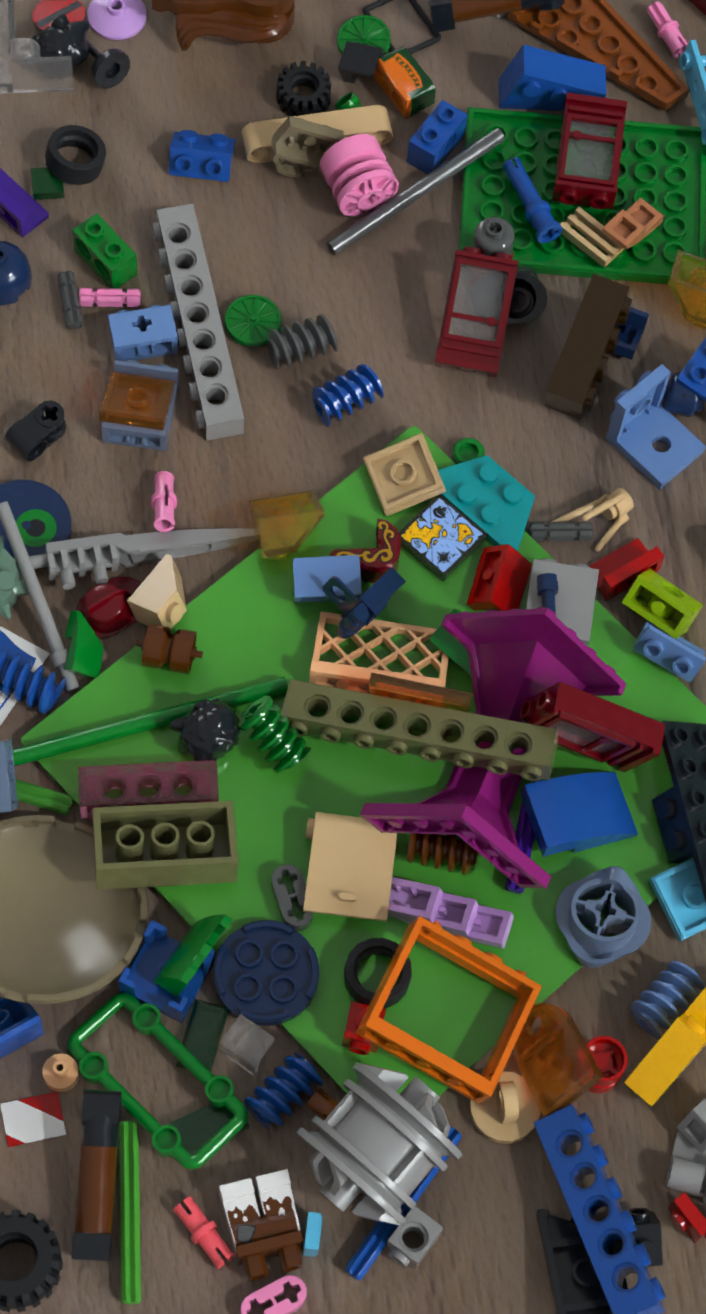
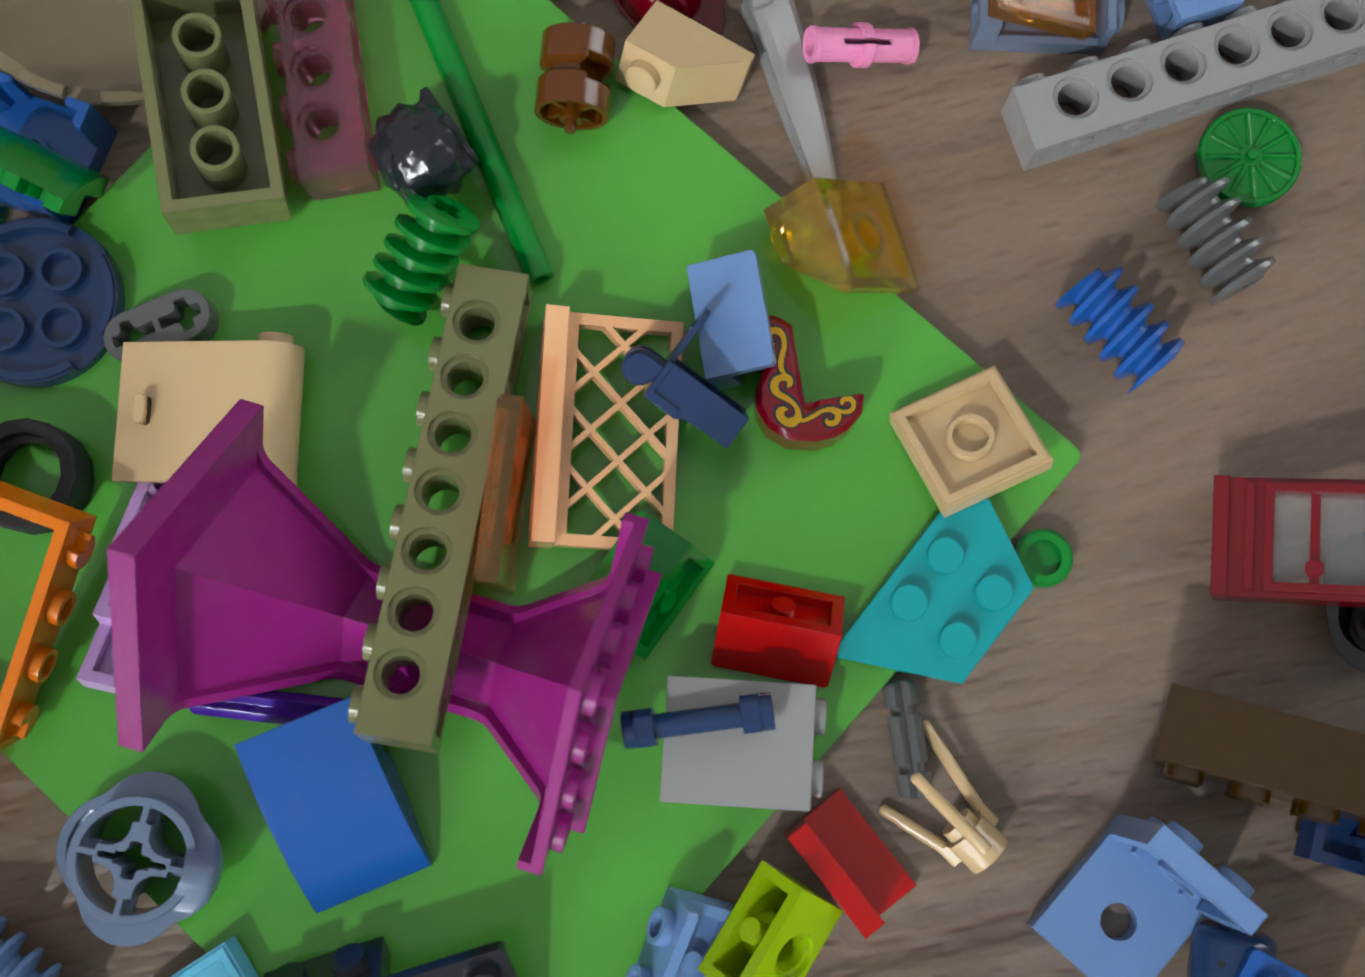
camera: 95 degrees right, 15 degrees up
(441, 537) = (856, 519): tile -> none
(595, 726) = (461, 813): dark red door -> none

